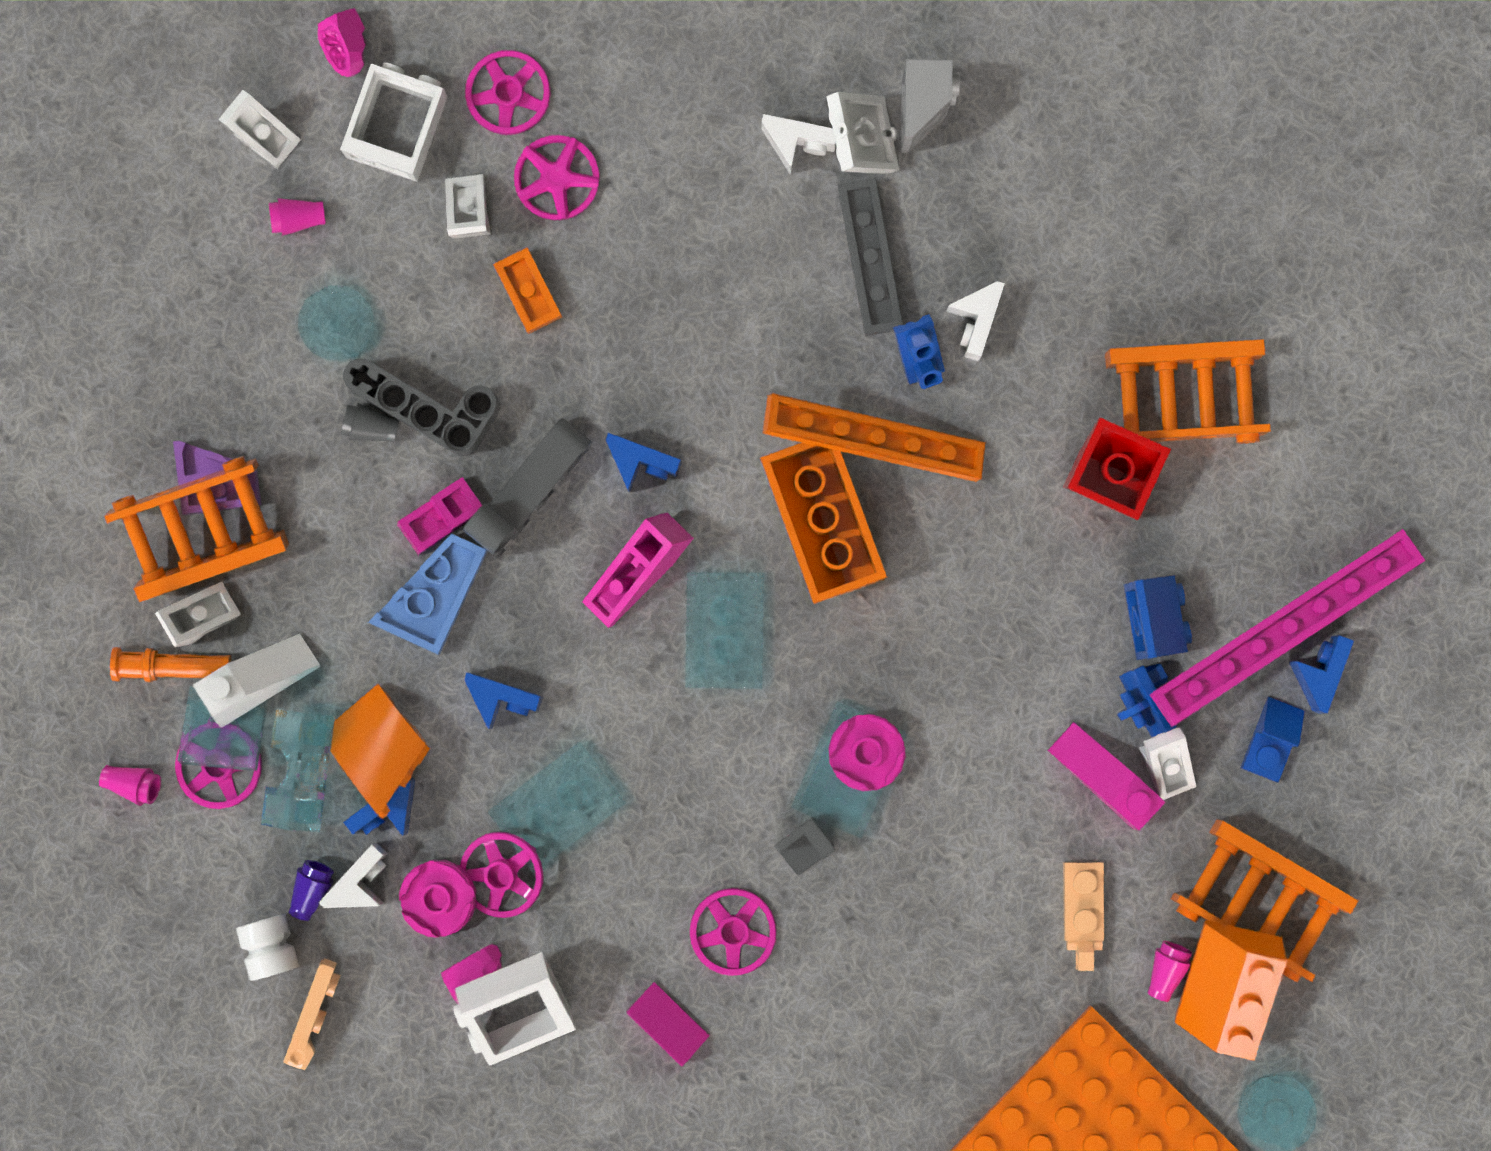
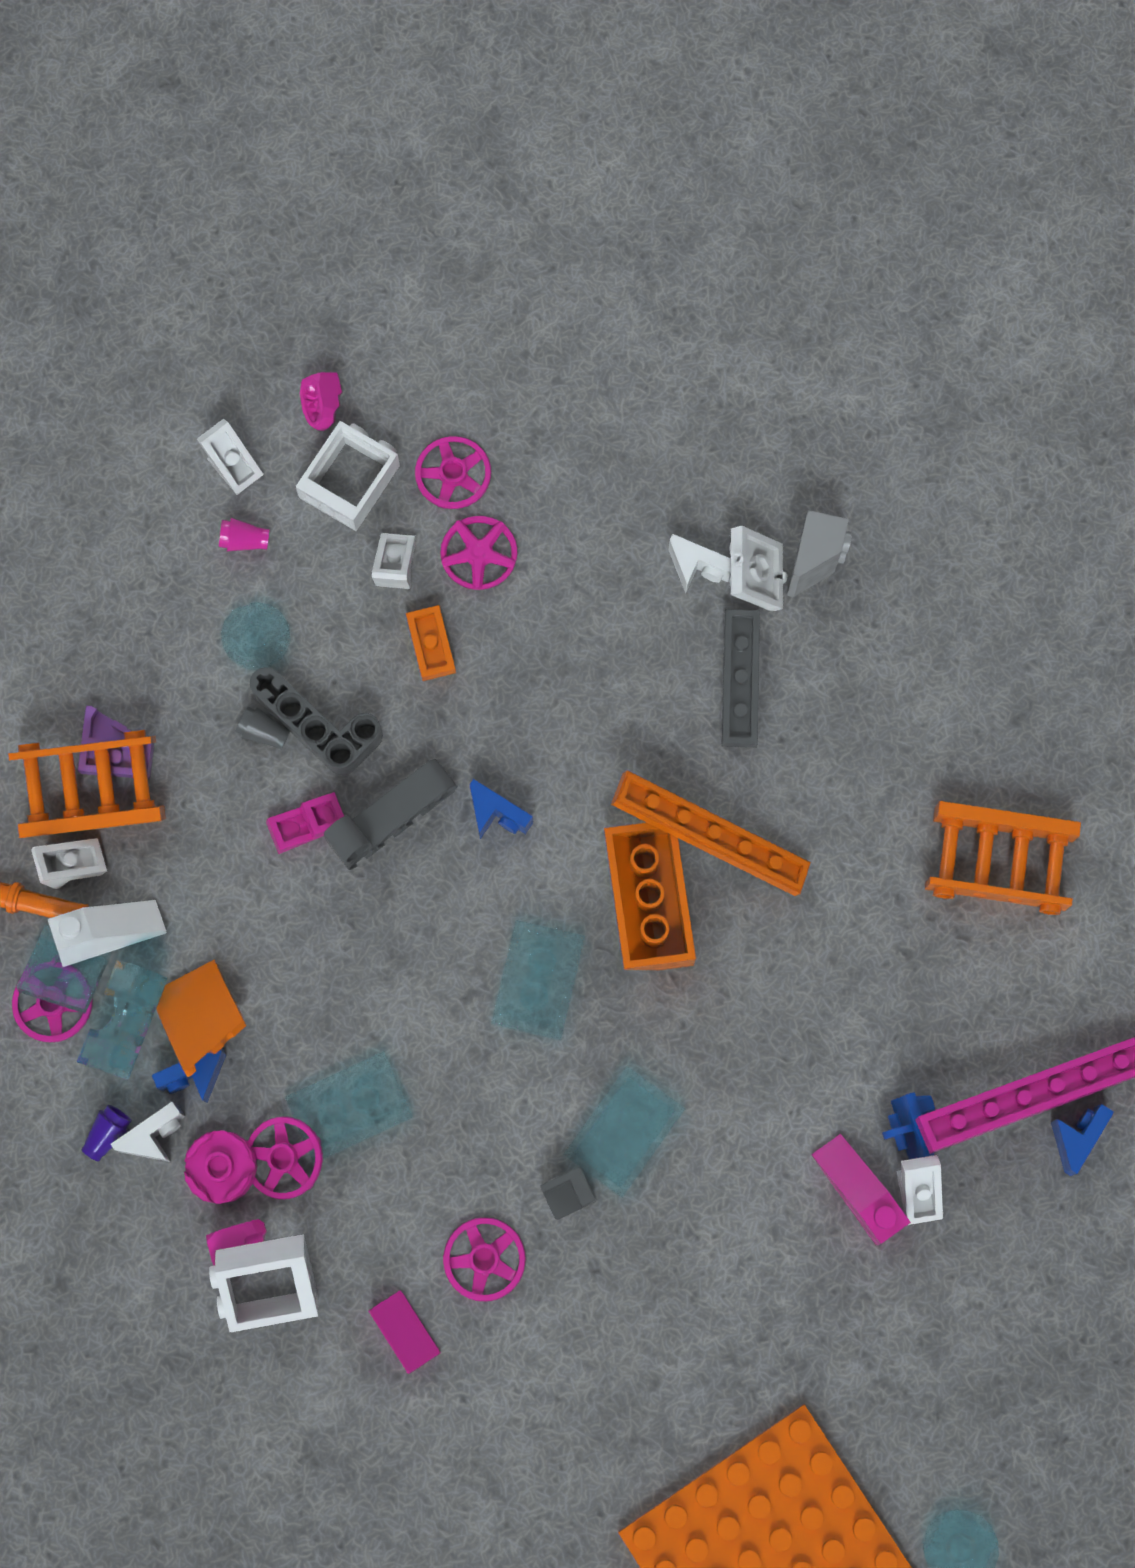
camera: 10 degrees right, 10 degrees down
(267, 947) = (53, 1175): white wheel -> none
(312, 1018) = (77, 1250): light nougat hinge -> none
(433, 597) = (283, 892): medium blue wing -> none
(490, 693) = (313, 989): blue slope -> none
(637, 567) = (472, 905): dark pink slope -> none
(866, 752) = (643, 1118): dark pink tile -> none
(920, 352) = (768, 768): blue hips -> none
(981, 308) = (829, 742): white slope -> none
(1084, 910) = (815, 1312): light nougat hinge -> none
(1117, 468) = (925, 908): red slope -> none
(1157, 617) = (936, 1051): blue slope -> none
(1168, 970) = (884, 1384): dark pink cone -> none
(1231, 988) = (939, 1413): orange slope -> none
(1263, 862) = (1020, 1327): orange fence -> none
(1273, 739) = (1022, 1190): blue slope -> none

